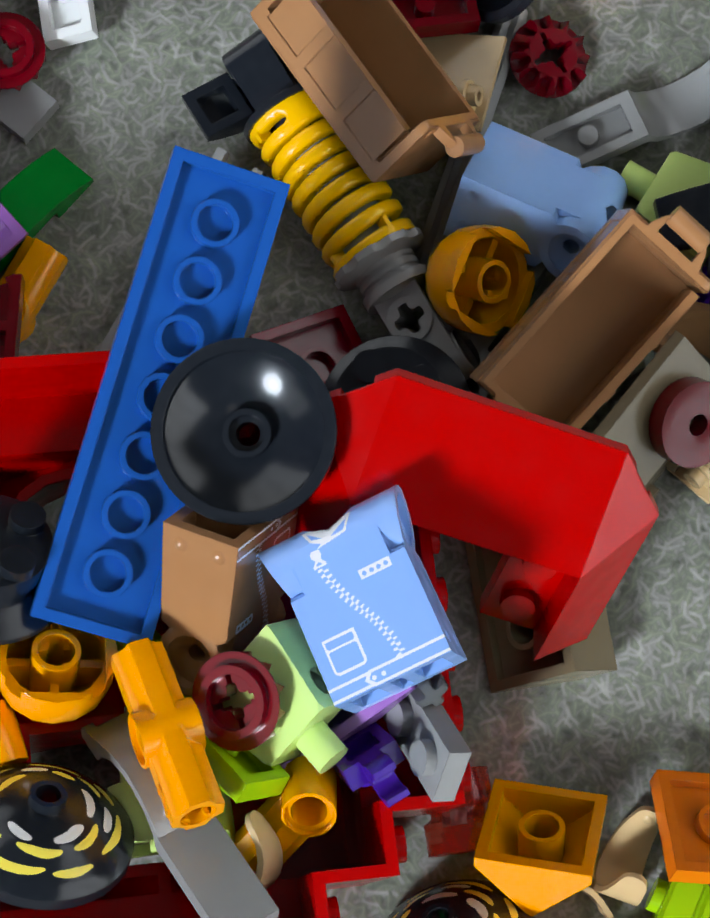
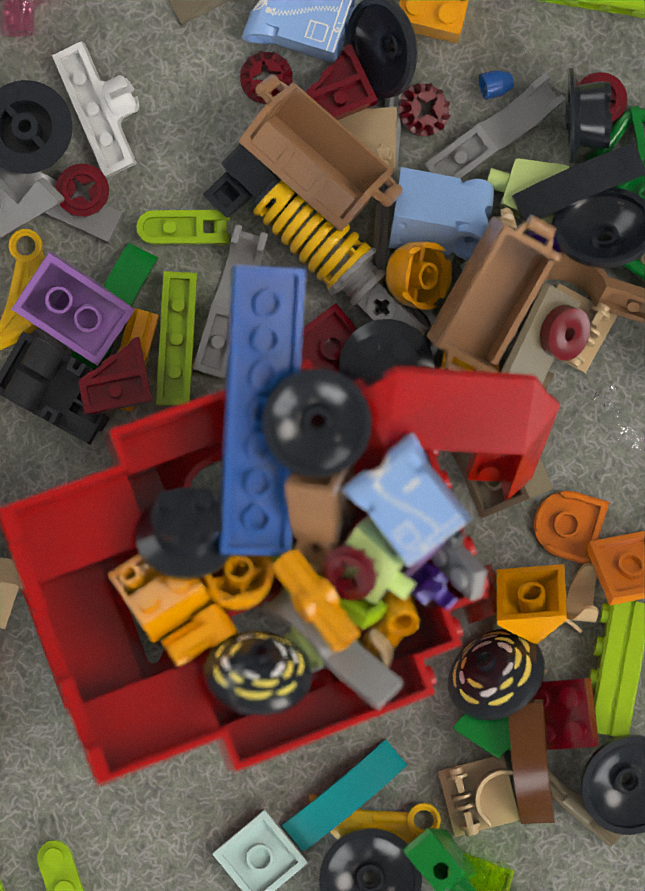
camera: 20 degrees left, 10 degrees up
(92, 278) = (176, 338): none -> lime plate
(133, 138) = (182, 227): none -> lime plate
(628, 734) = (567, 524): none -> orange tile
(666, 45) = (496, 83): none -> blue hose

